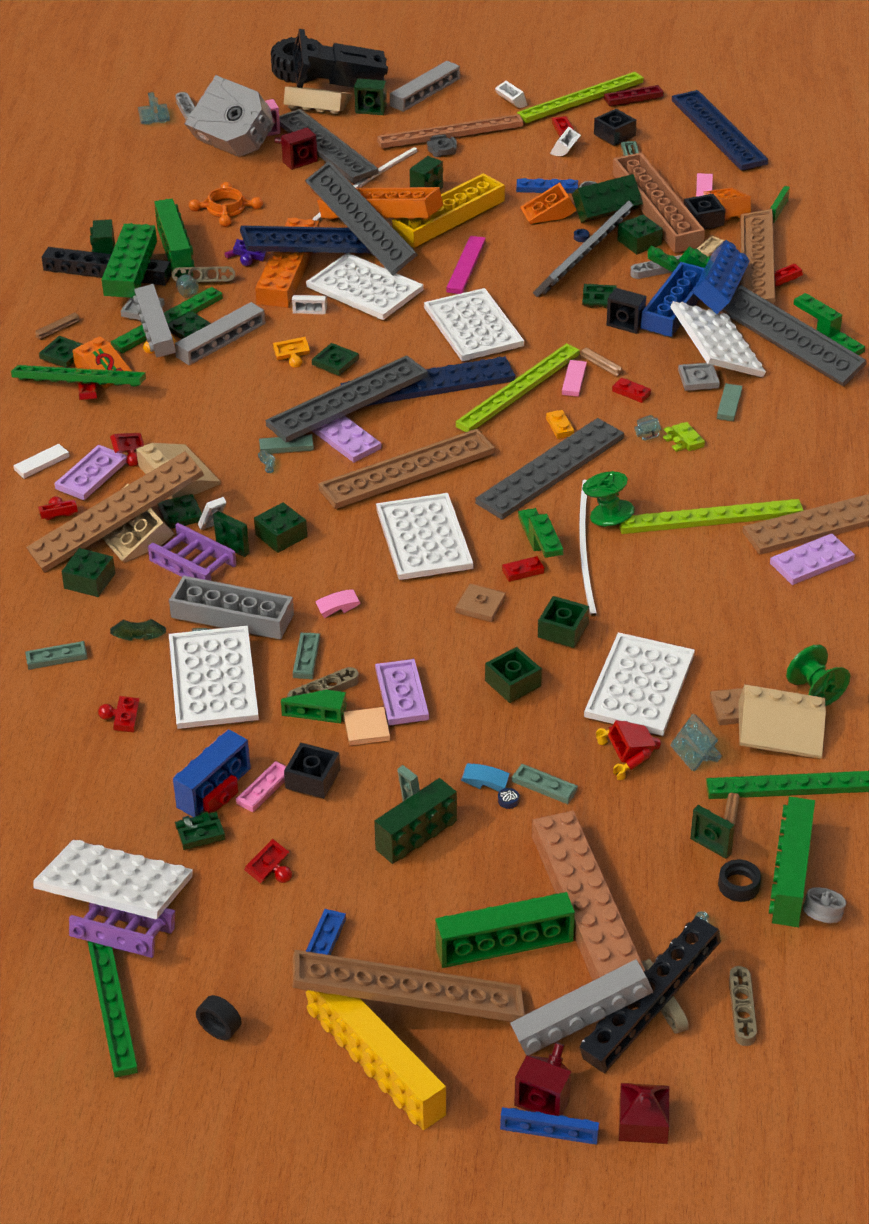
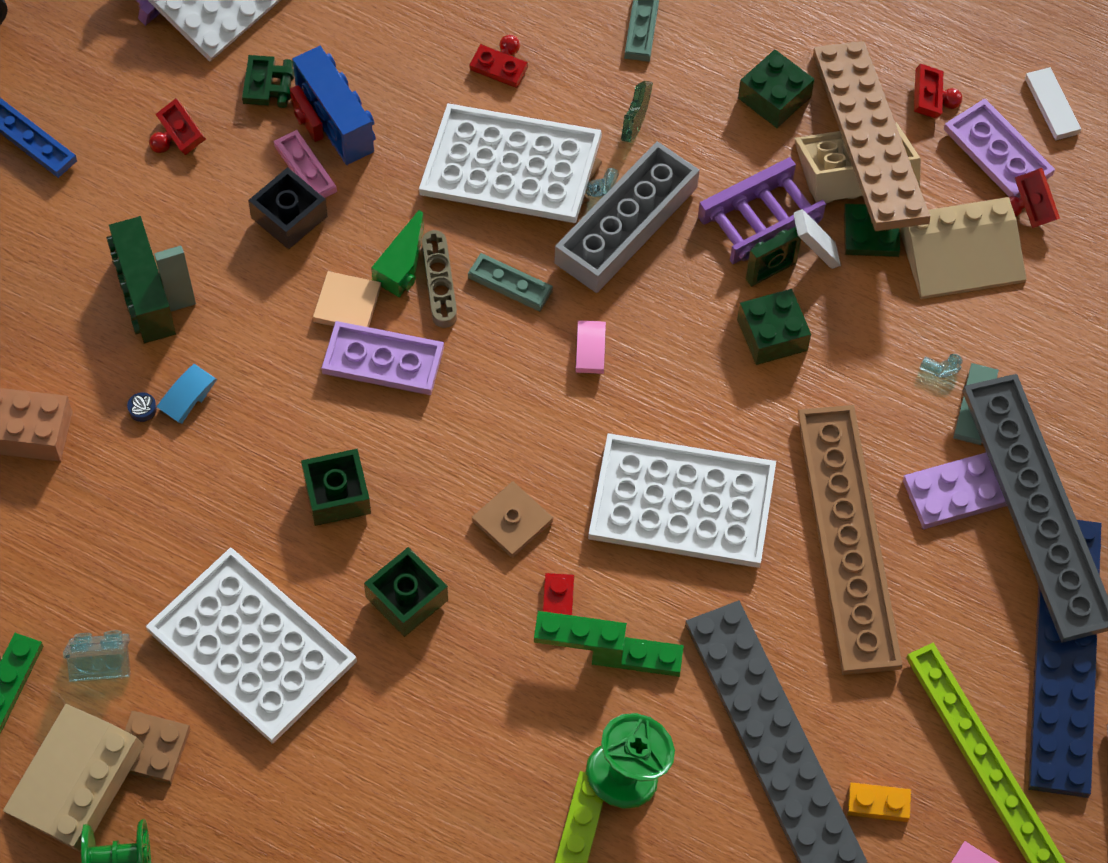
camera: 110 degrees right, 20 degrees up
(544, 783) = (143, 457): sand green tile -> none
(590, 601) = (555, 698): white piece -> none
(631, 743) = (141, 573): red torso -> none

